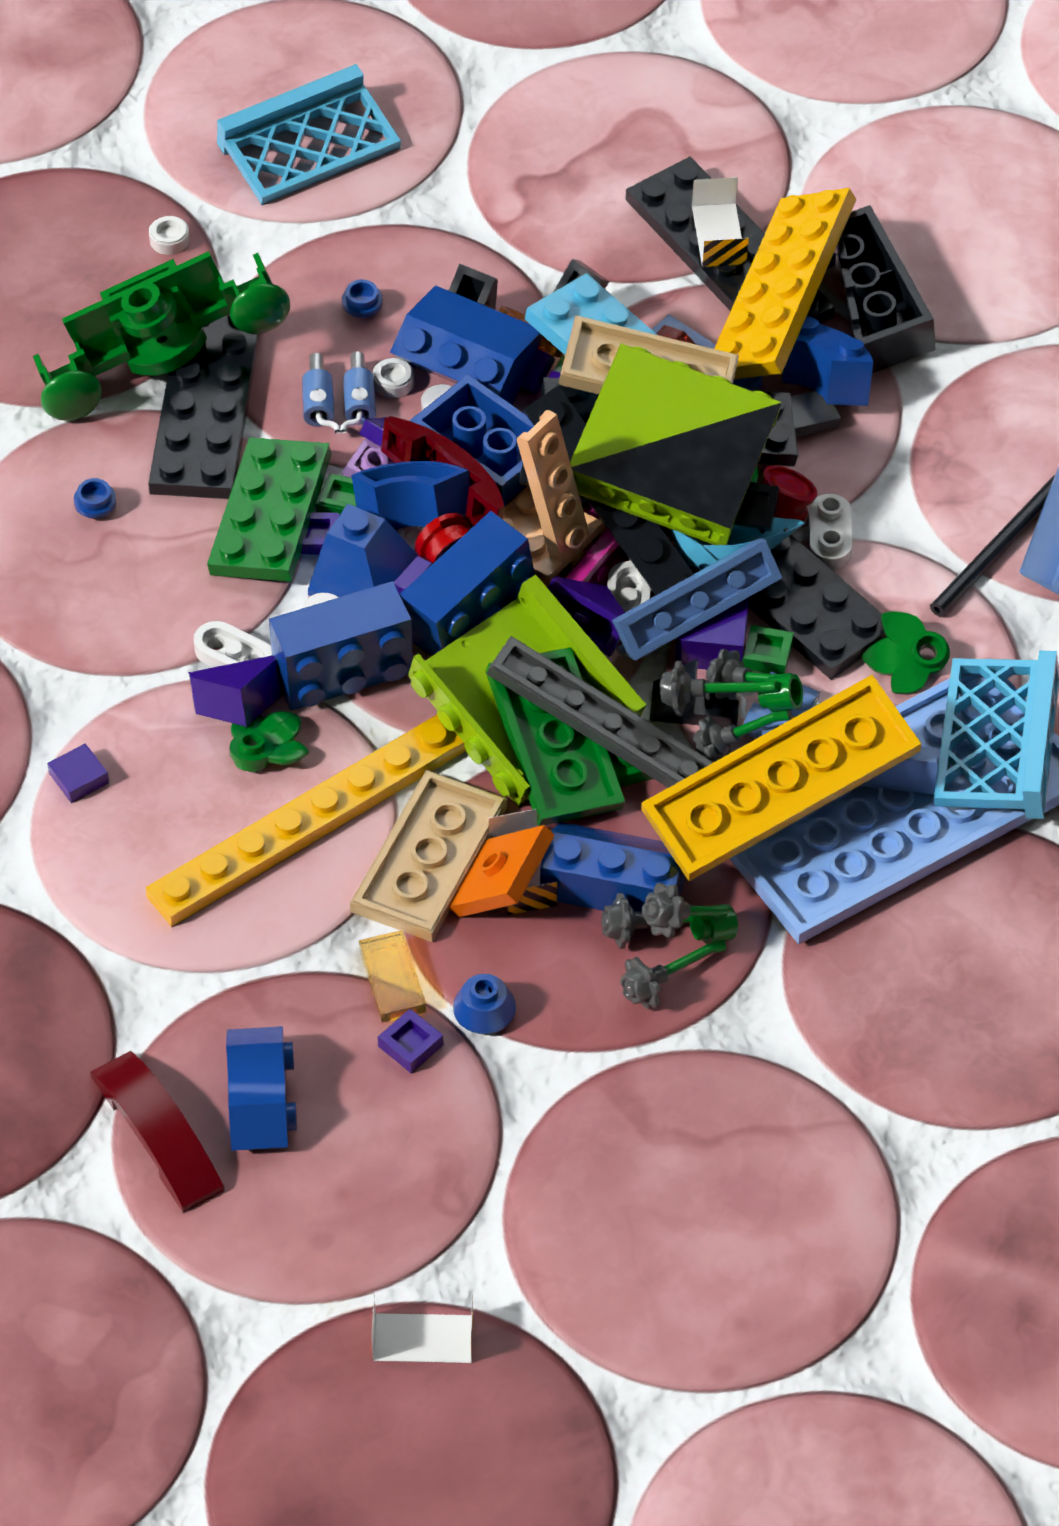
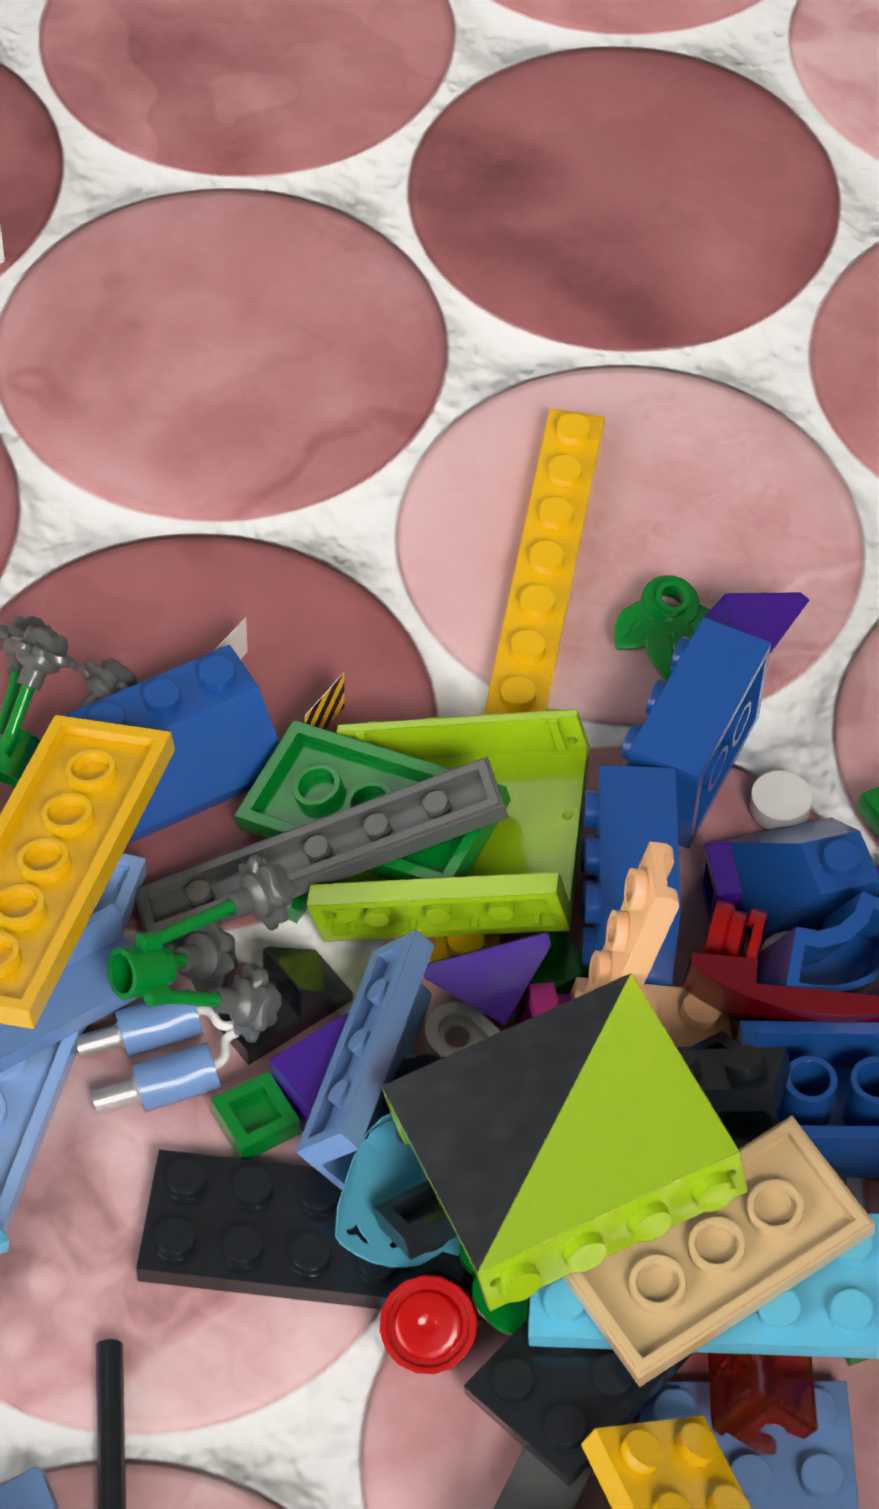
camera: 135 degrees right, 0 degrees up
(78, 773) = (803, 479): dark purple tile -> none
(160, 1129) = (358, 244): dark red slope -> none
(234, 644) = (808, 682): white plate -> none
(258, 1088) = (292, 320): blue brick -> none
(392, 975) = (289, 508): clear yellow tile -> none
(410, 1040) = (208, 468): dark purple tile -> none
(427, 856) = (382, 634): tan tile -> none
(484, 1004) = (170, 537): blue cone -> none
(501, 871) = (273, 635): orange plate -> none
(831, 523) = (338, 1350): white plate -> none
(900, 652) = (89, 1246): green plate -> none

